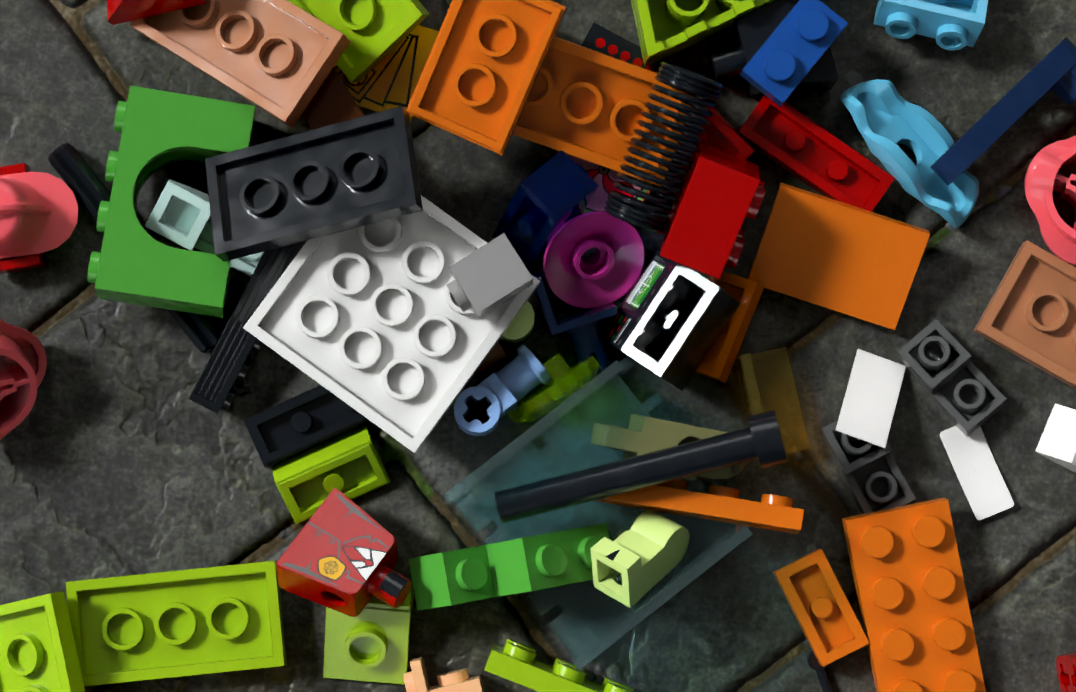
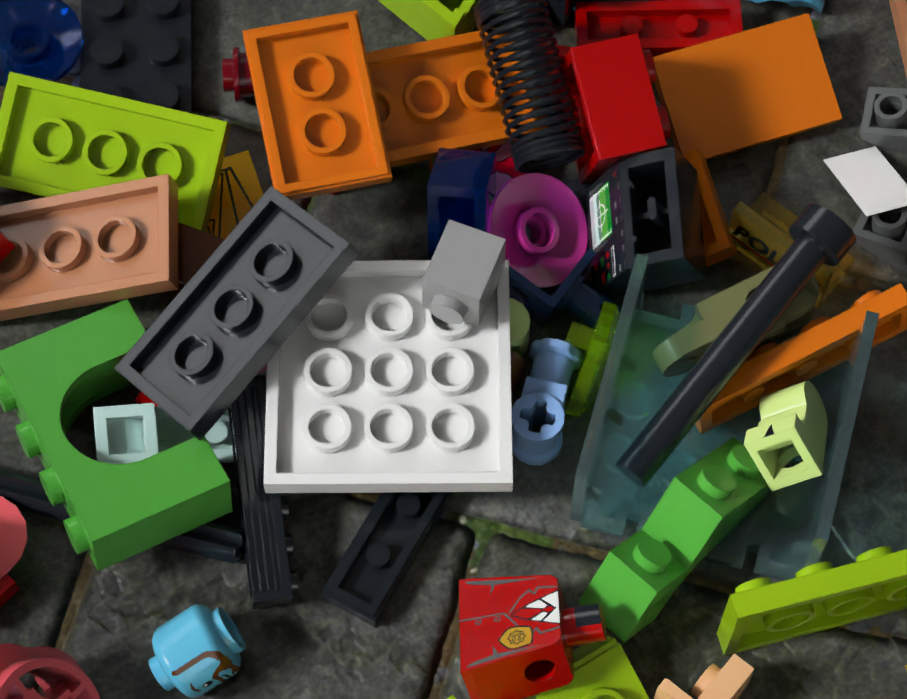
camera: 35 degrees left, 20 degrees down
(128, 403) = (196, 650): none -> medium azure head
(341, 463) = (428, 599): lime slope -> none

